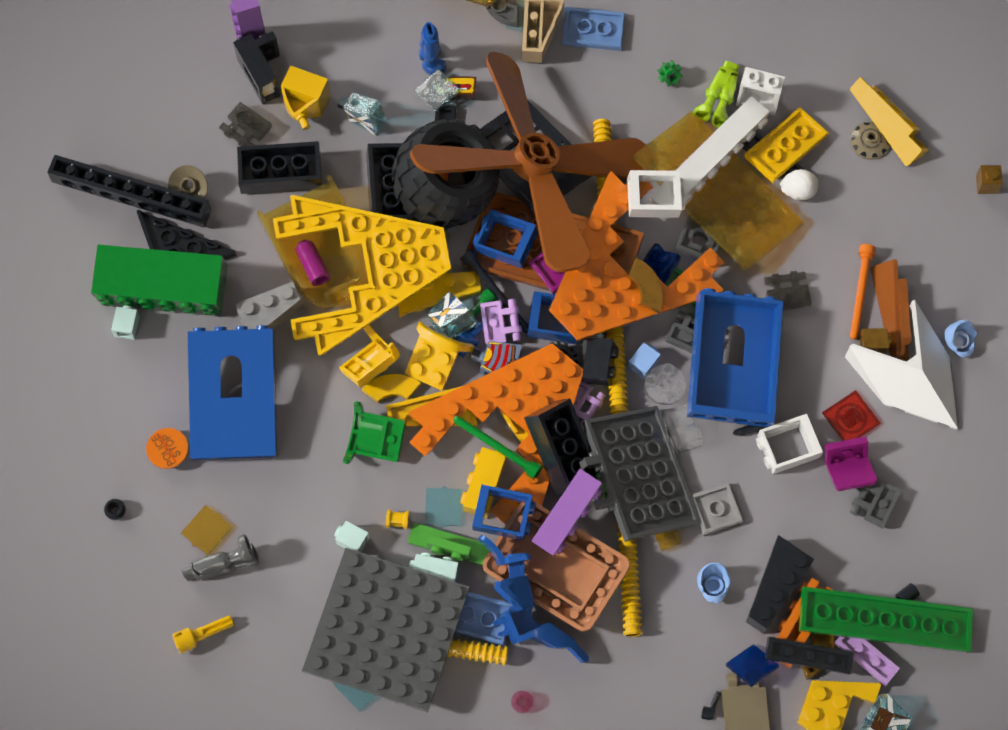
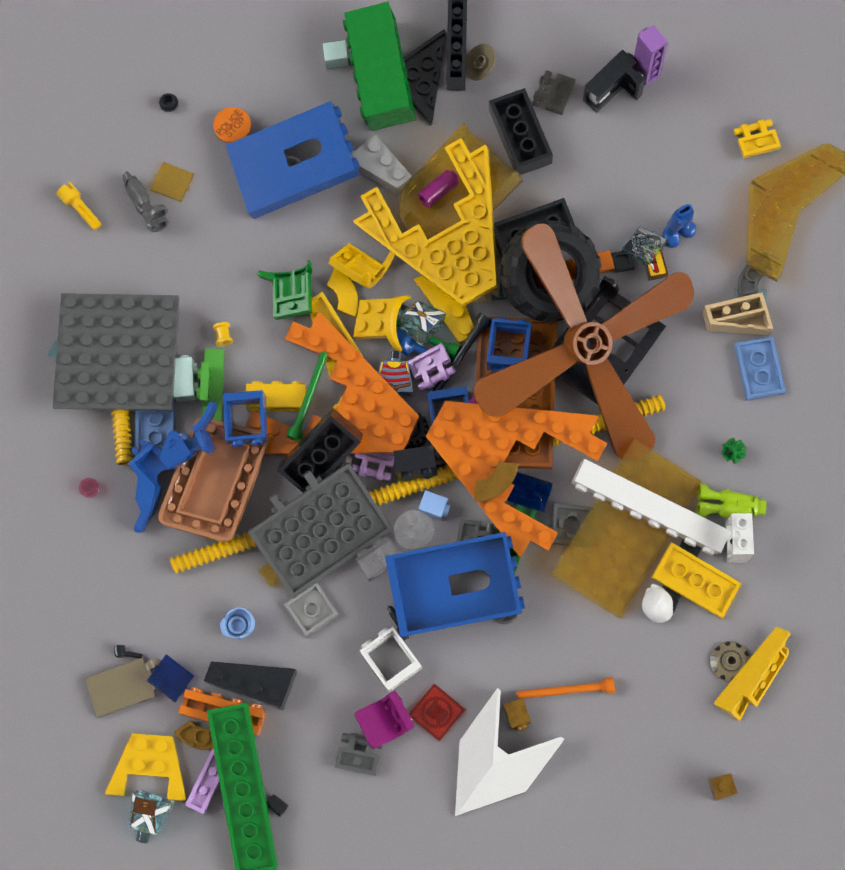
camera: 80 degrees right, 5 degrees up
(304, 95) = (594, 129): yellow piece -> none
(351, 537) = (194, 301): light aqua brick -> none
(363, 112) = (598, 186): clear light blue torso -> none
(443, 506) = (246, 369): clear light blue piece -> none
(567, 512) = (256, 471): medium lavender brick -> none
(639, 210) = (588, 438): white window -> none
(792, 297) = (539, 623): clear smoke plate -> none
(809, 655) = (189, 726): black tile -> none
(893, 306) = (561, 724): dark orange wedge -> none
(961, 337) = (545, 796): light blue hair -> none

